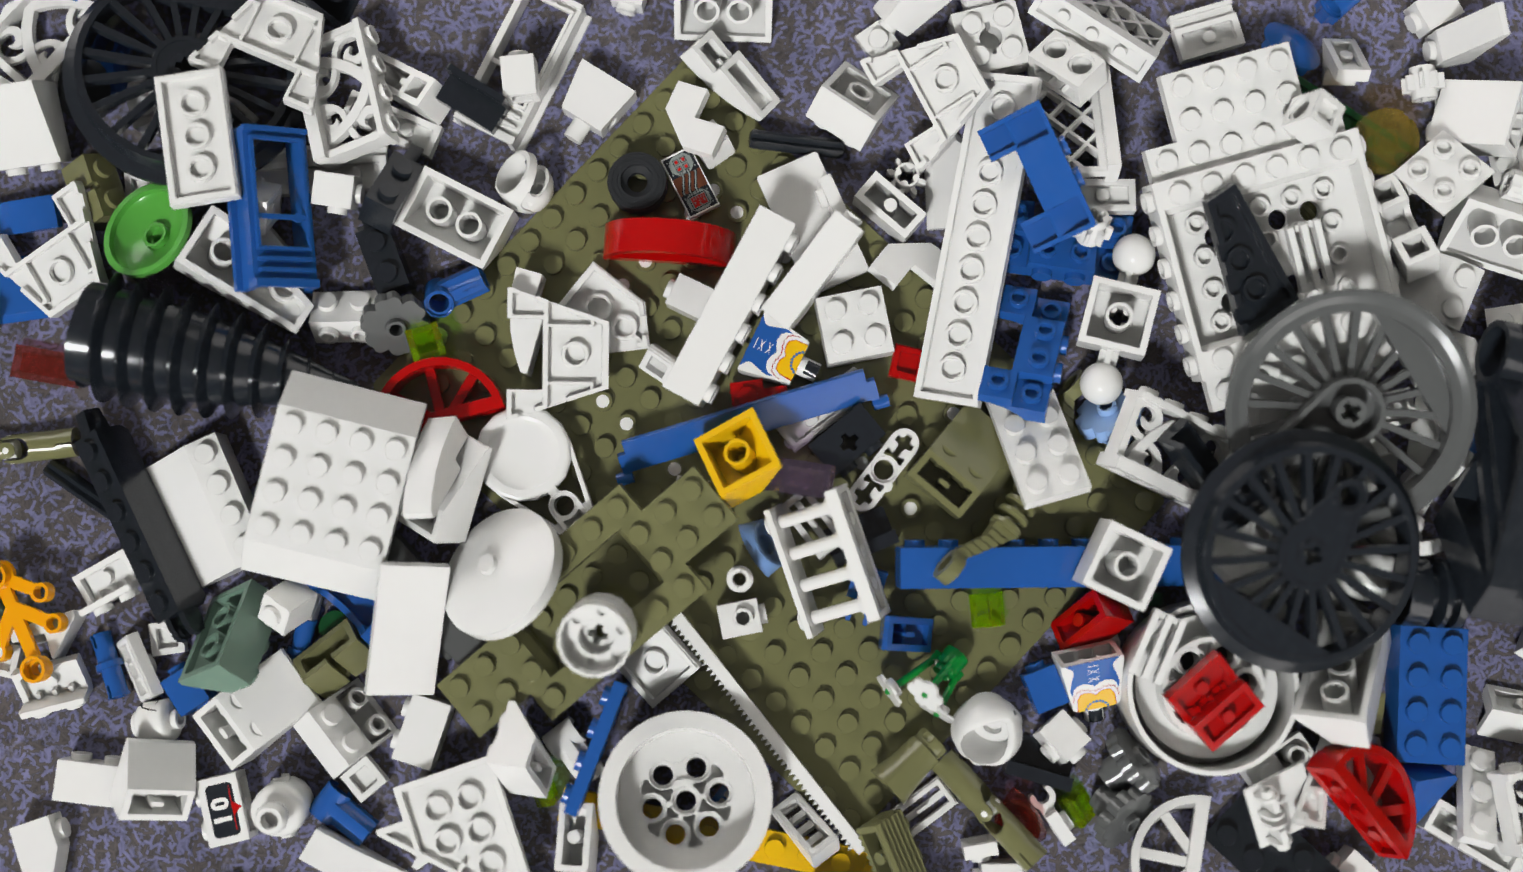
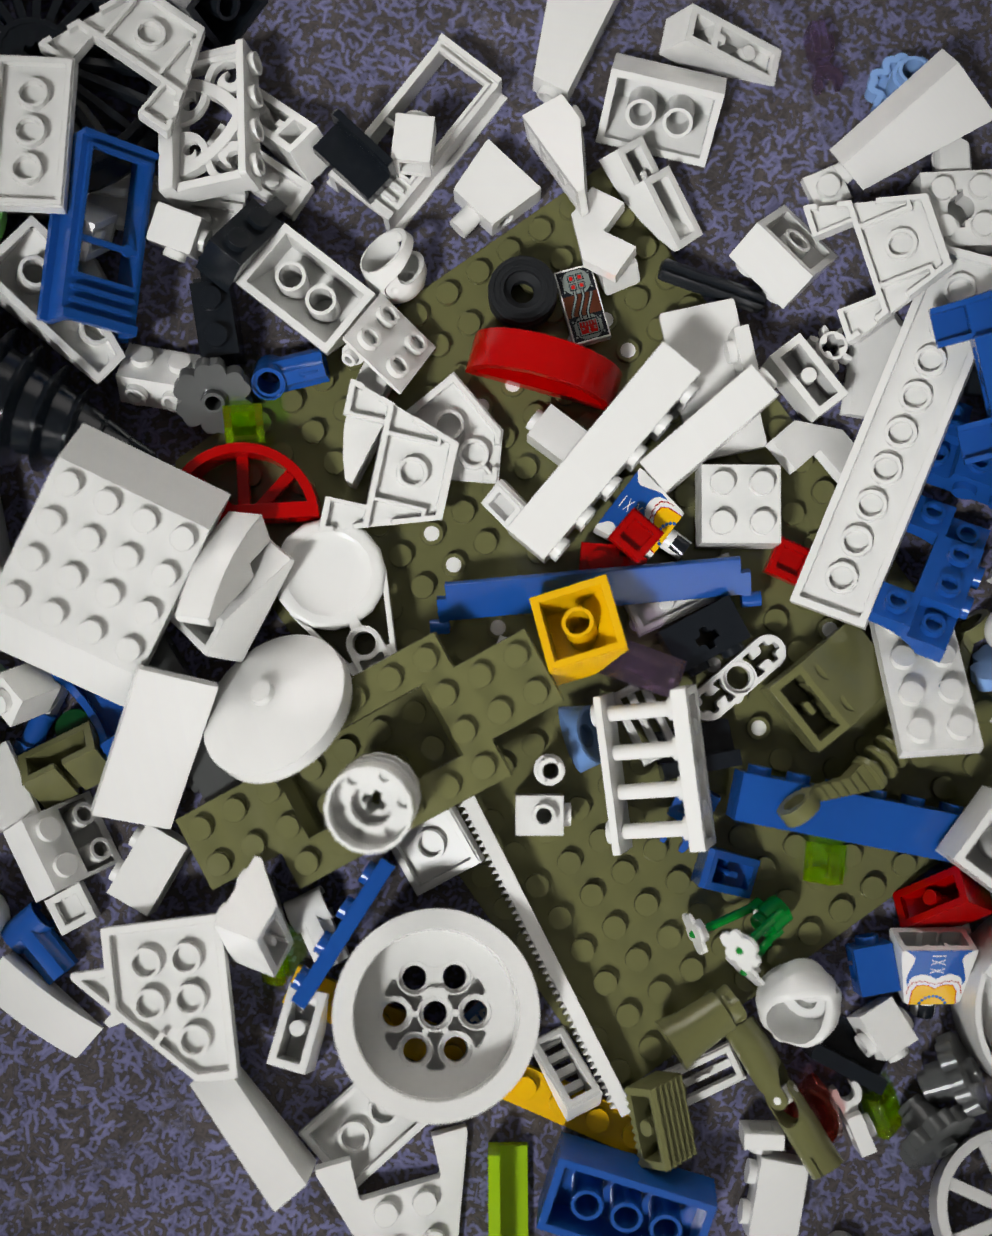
camera: 10 degrees right, 0 degrees up
(532, 250) = (387, 344): none -> white hinge
(643, 47) = (558, 140): none -> white slope
(772, 369) = (635, 535): none -> red tile

